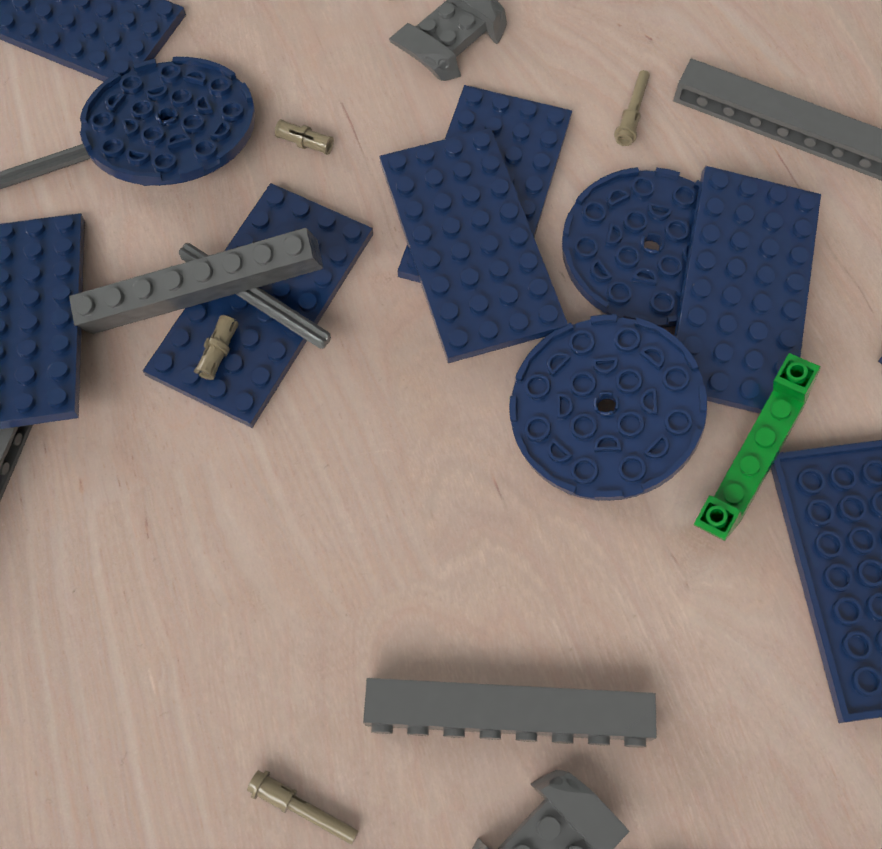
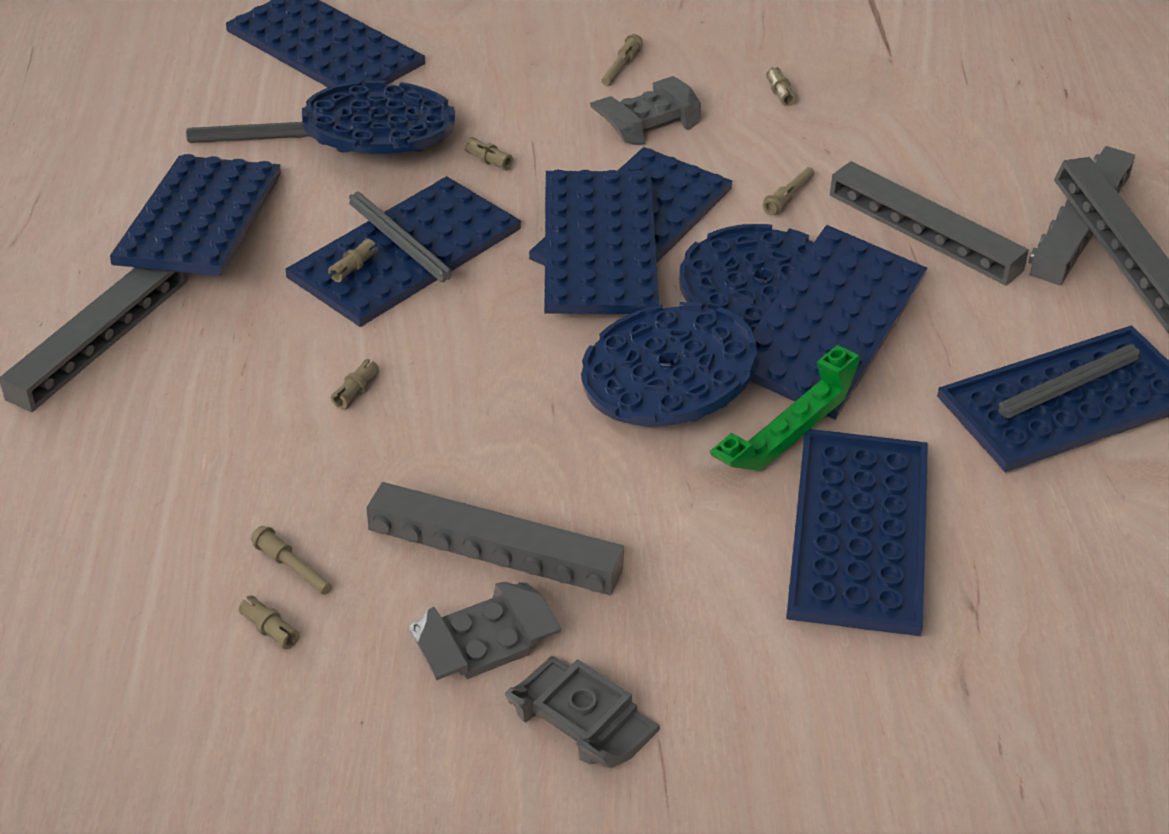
camera: 15 degrees right, 25 degrees down
(197, 281) = (355, 211): dark grey brick -> none
(278, 521) = (354, 384): none -> dark tan pin

